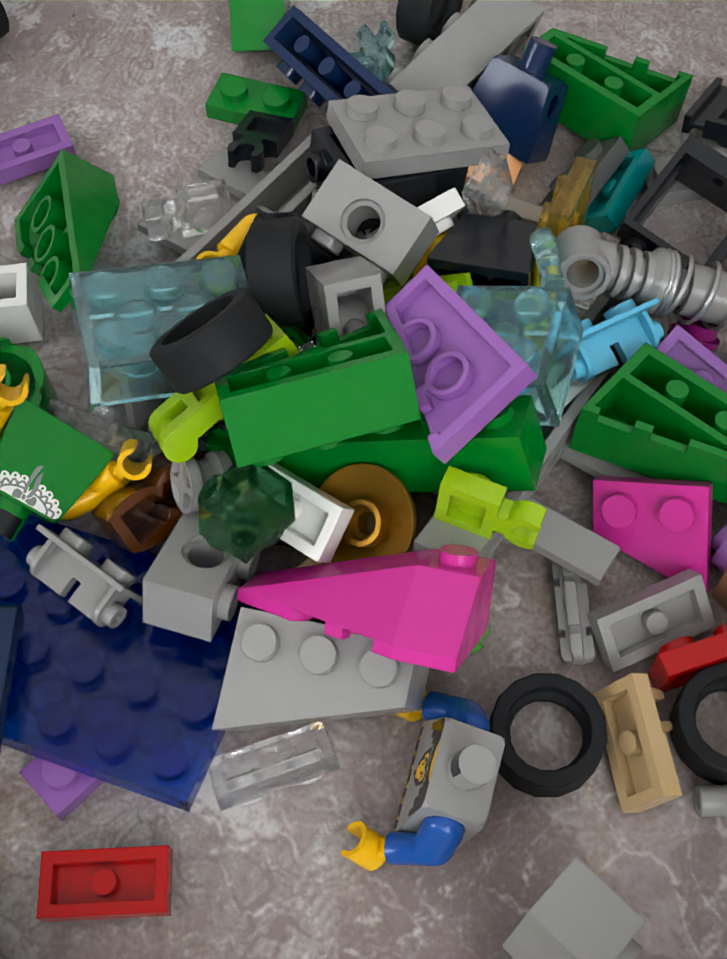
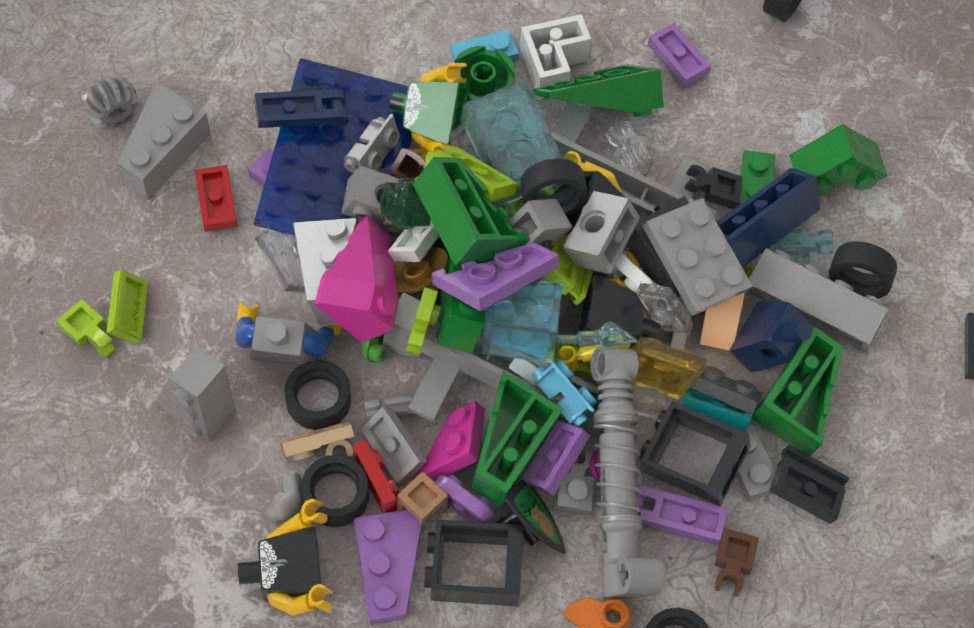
camera: 75 degrees right, 0 degrees up
(211, 341) = (481, 152): black tyre -> none

